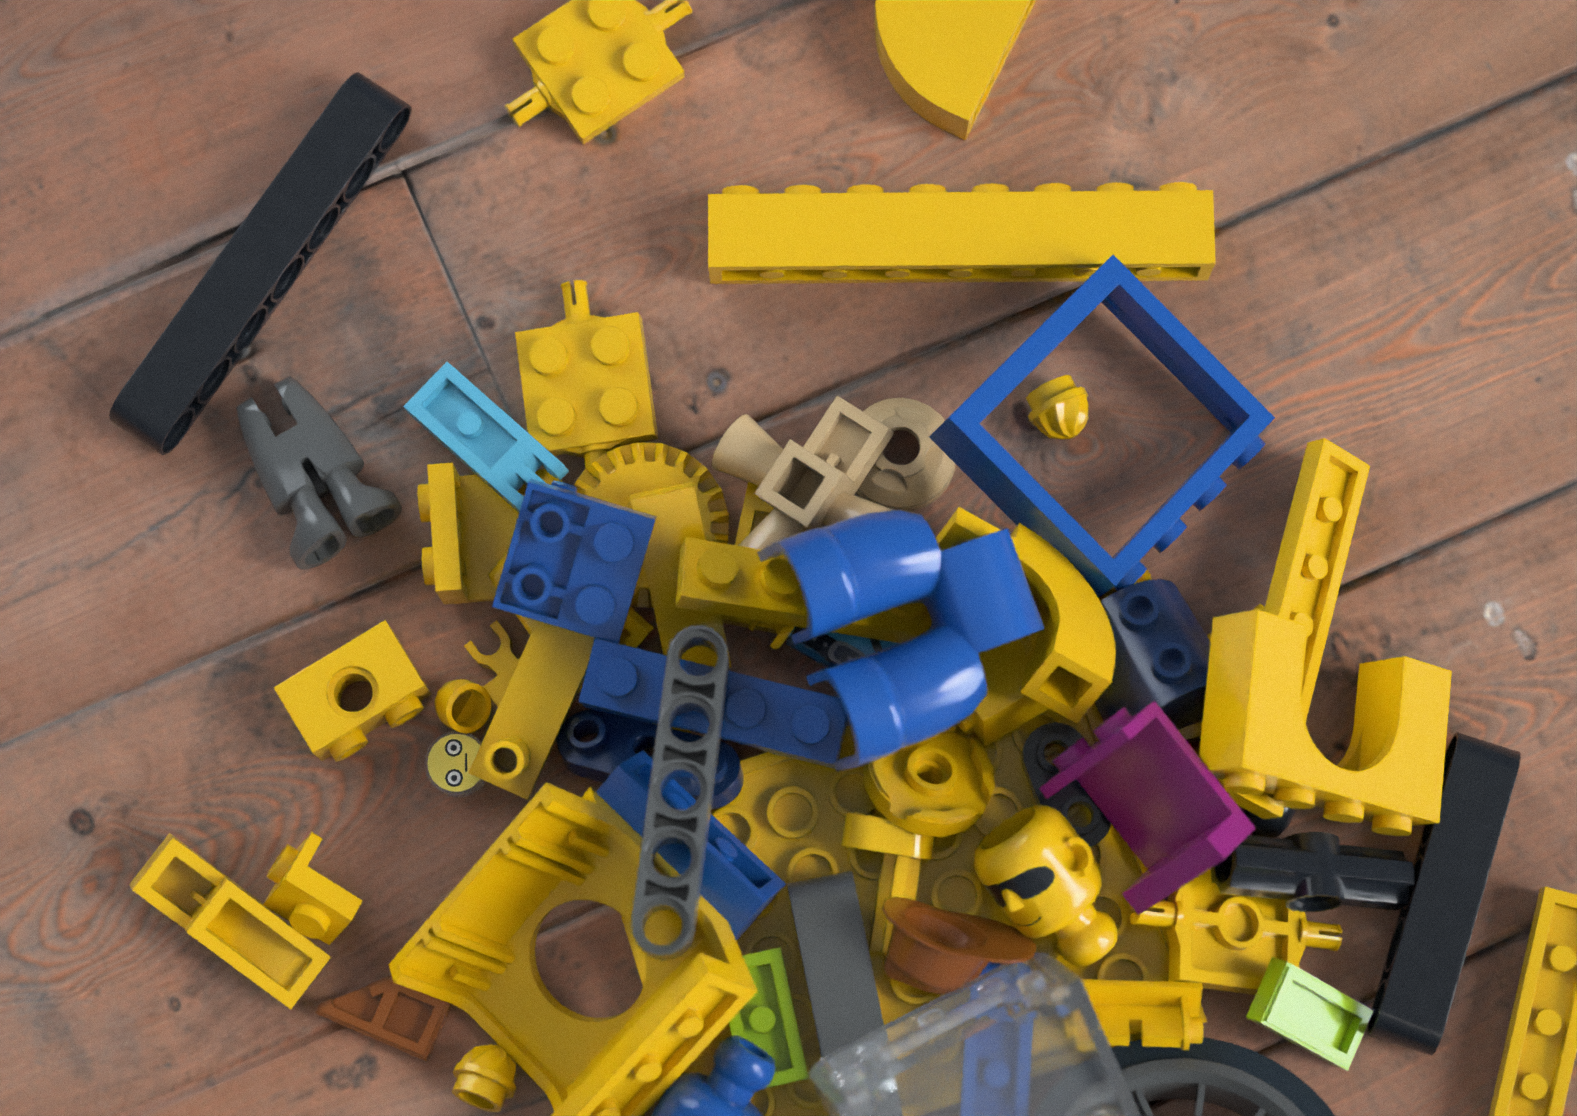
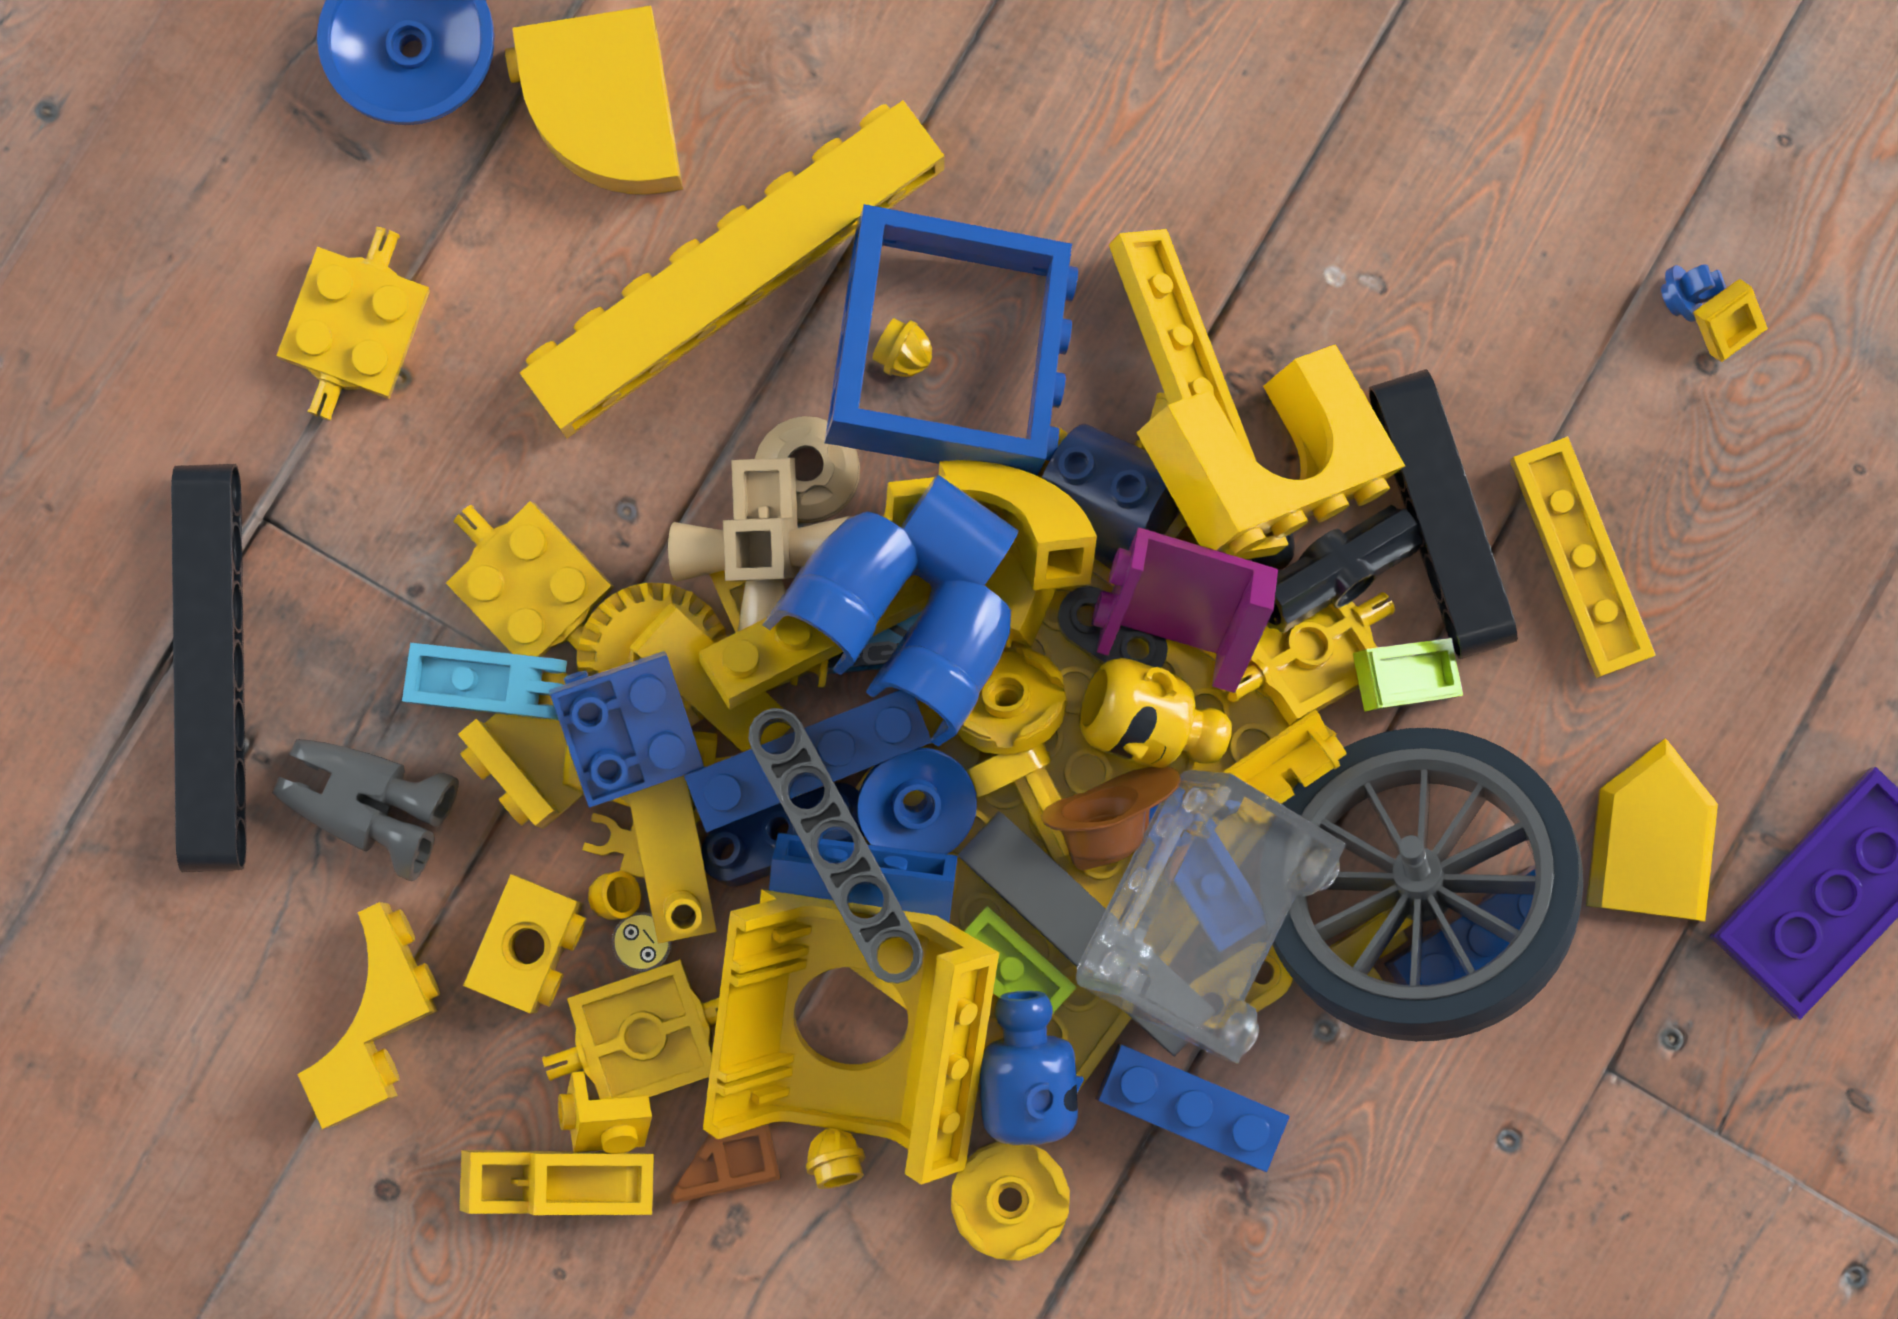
camera: 40 degrees left, 5 degrees up
(213, 656) = (395, 995): none -> yellow arch
(394, 842) = (640, 1035): none -> yellow plate
(791, 842) = (936, 822): none -> blue dish

